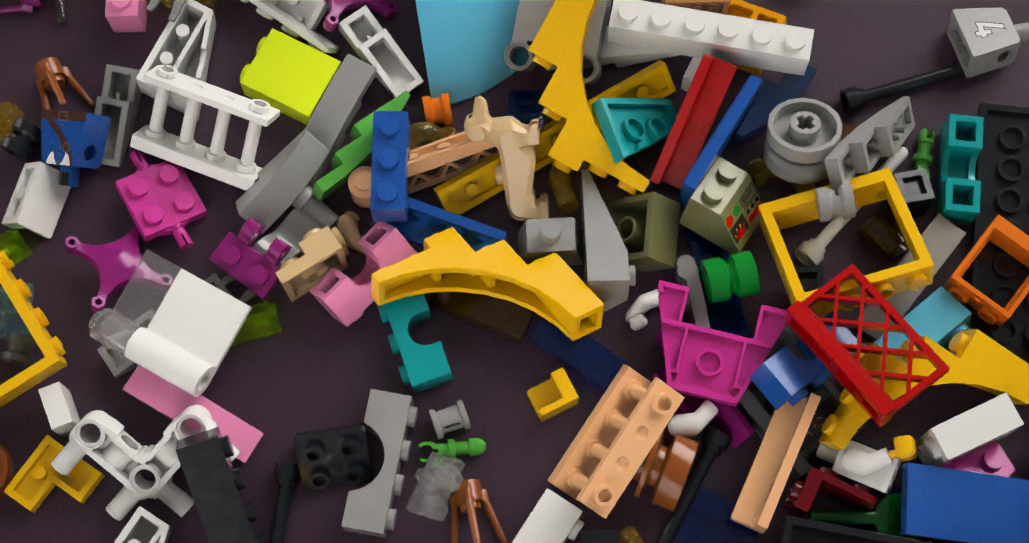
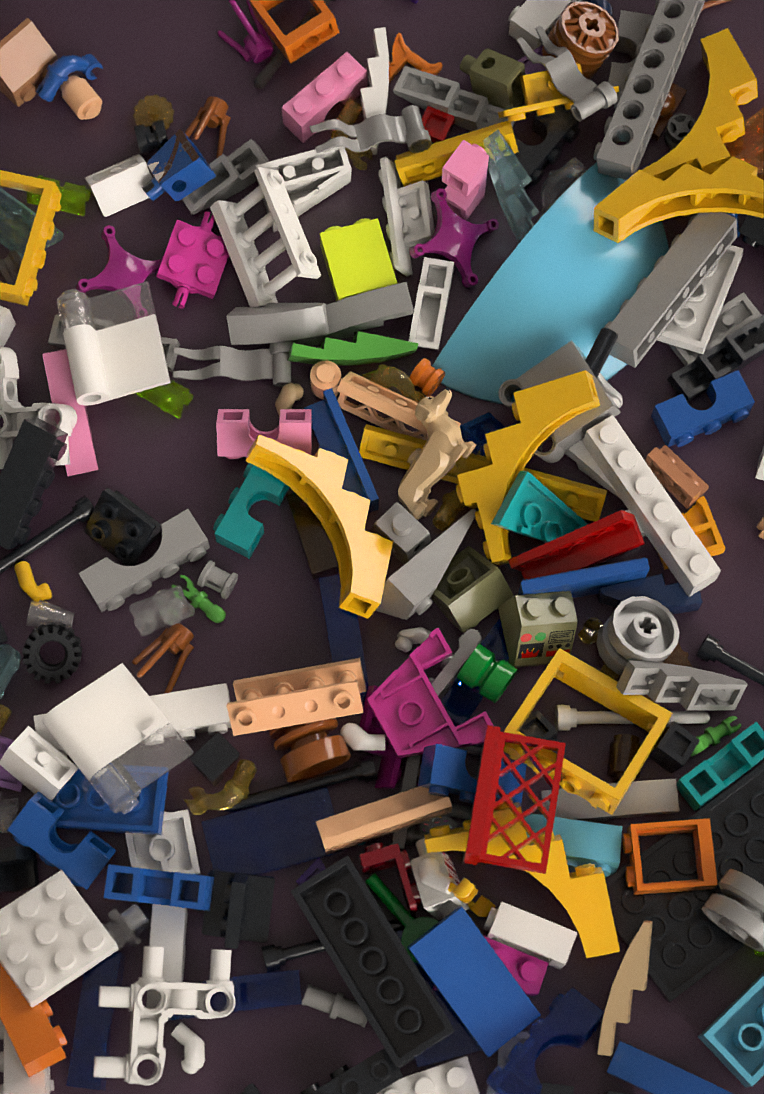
camera: 45 degrees right, 0 degrees up
(246, 263) = (199, 355): magenta plate -> none
(321, 252) = (247, 391): tan plate -> none
(389, 166) = (333, 390): blue arch -> none
(553, 395) = (297, 633): yellow panel -> none
(835, 202) = (605, 696): light grey wheel -> none

